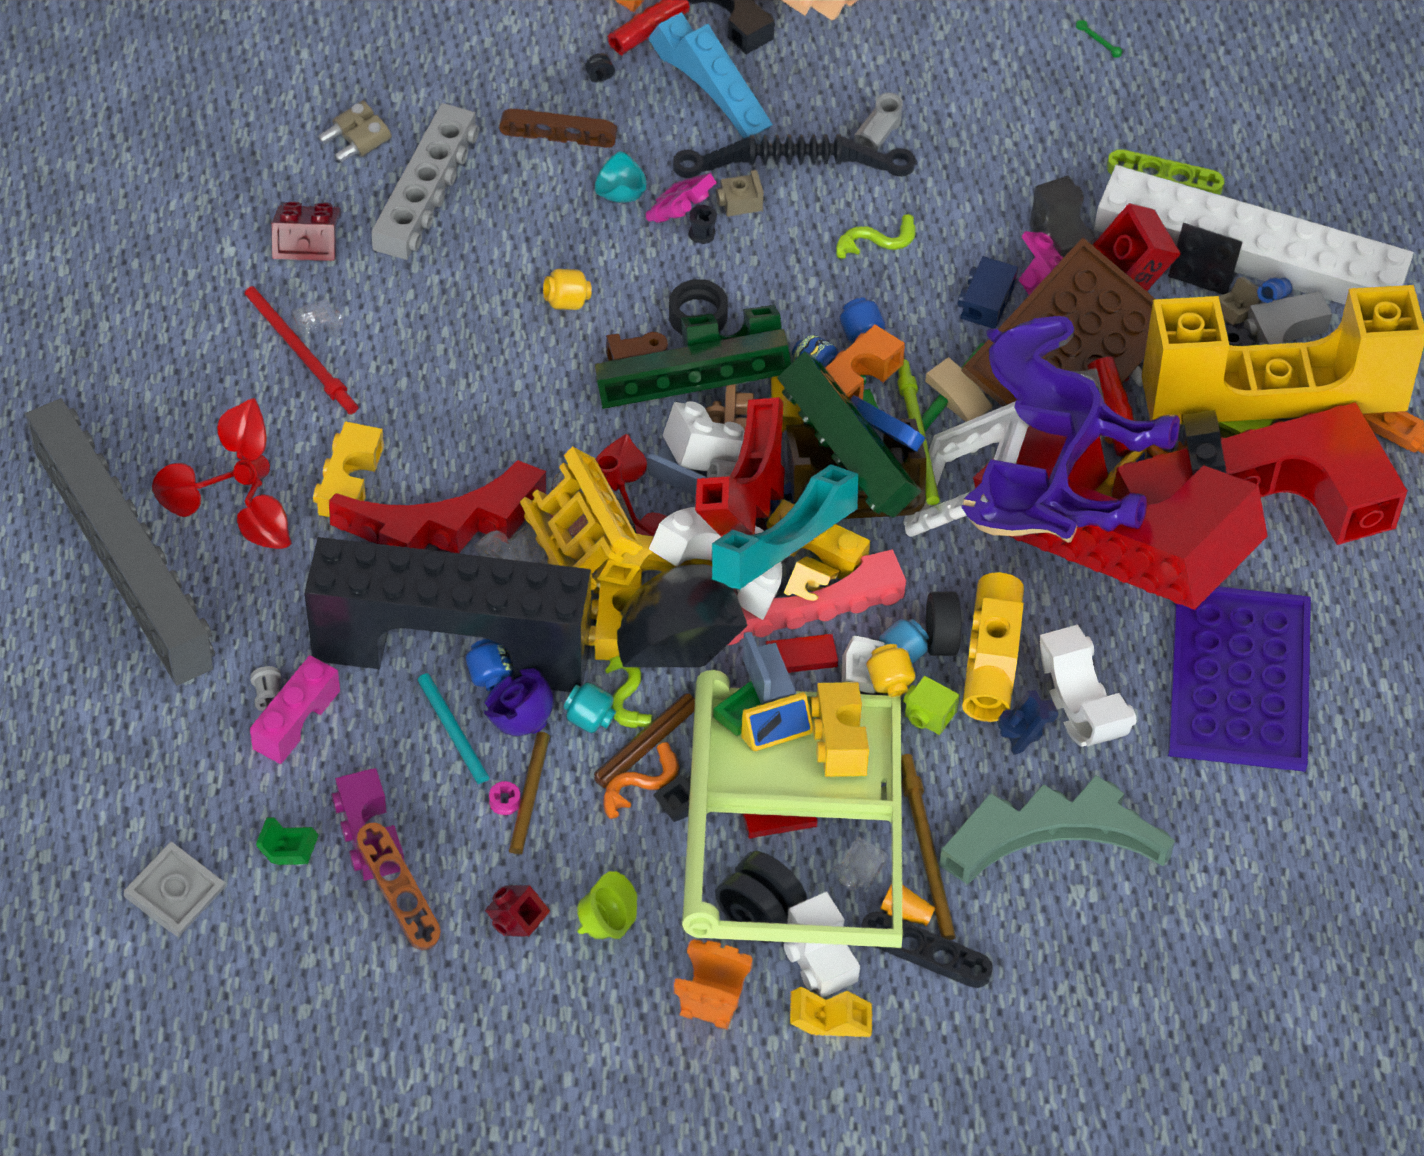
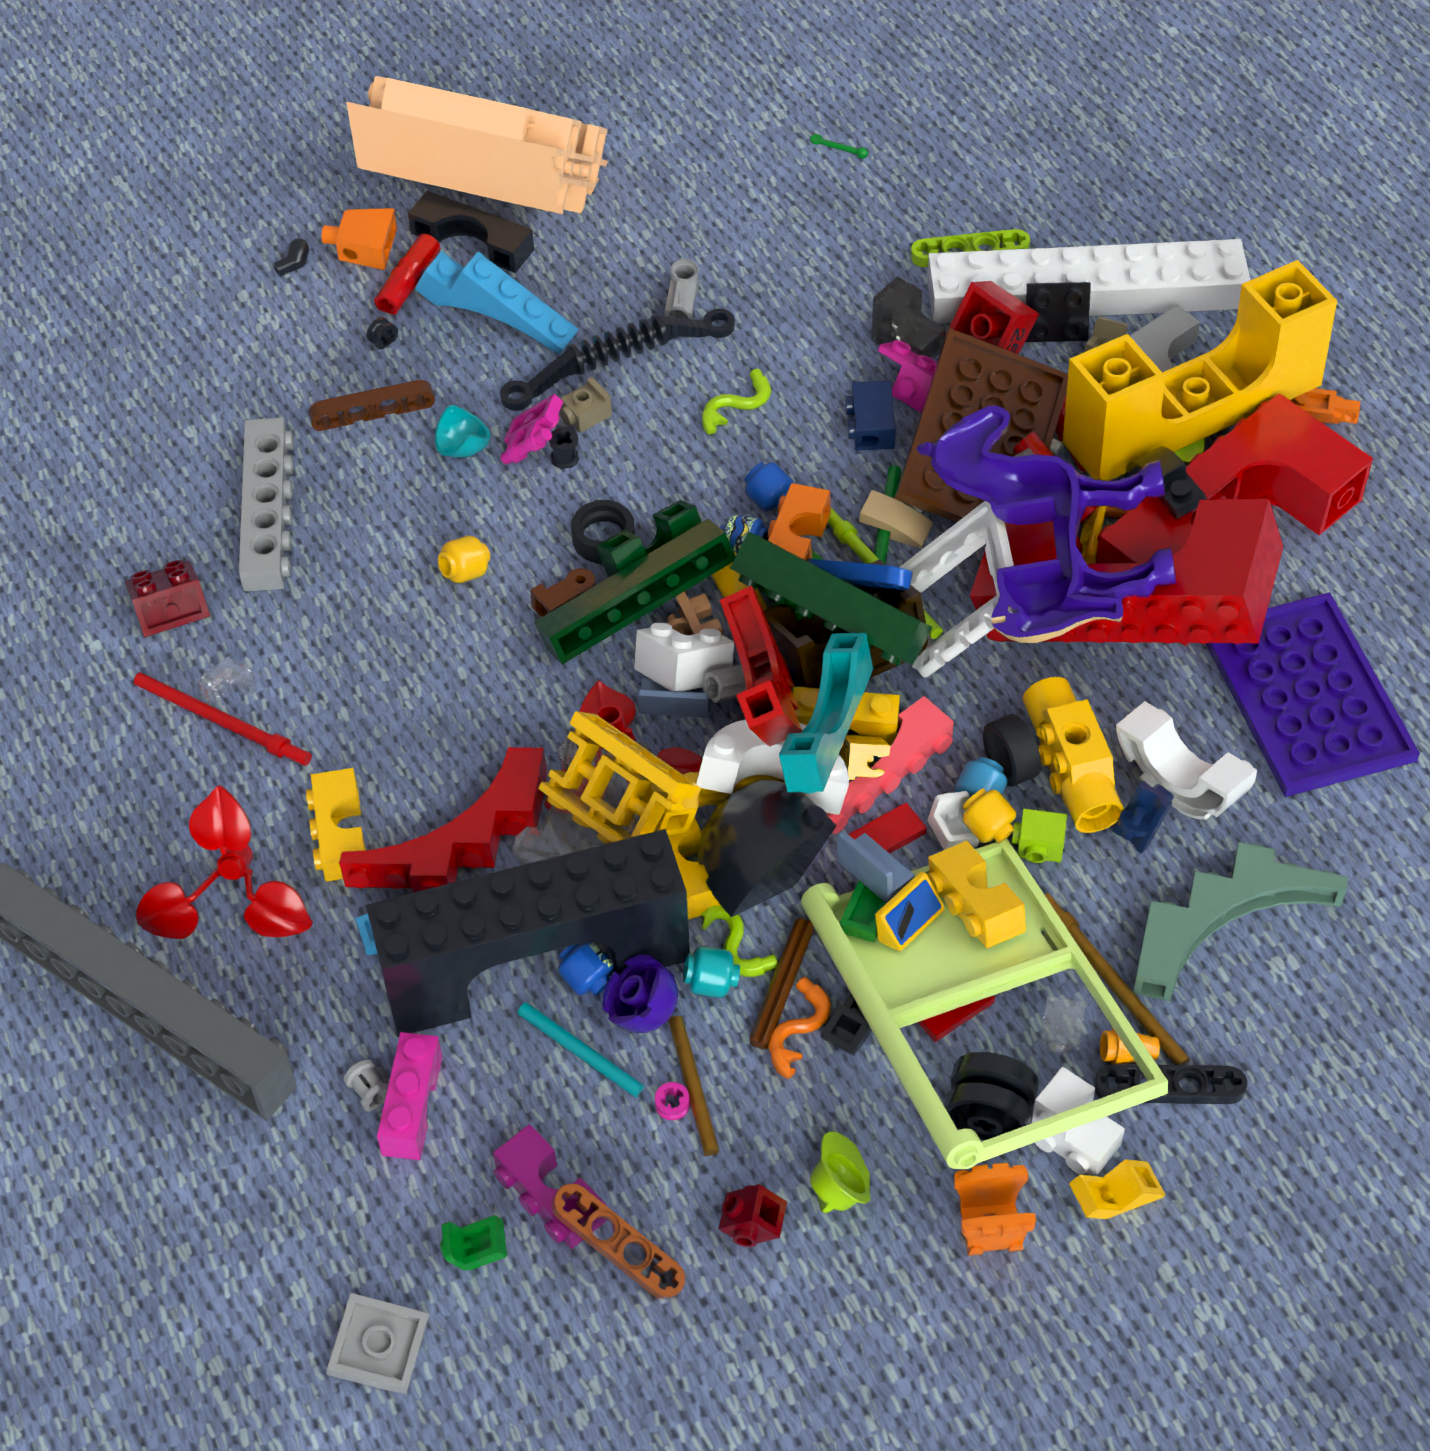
camera: 20 degrees left, 0 degrees up
(361, 130) = (170, 474): dark tan piece -> none
(1274, 289) = (1135, 326): blue pin -> none

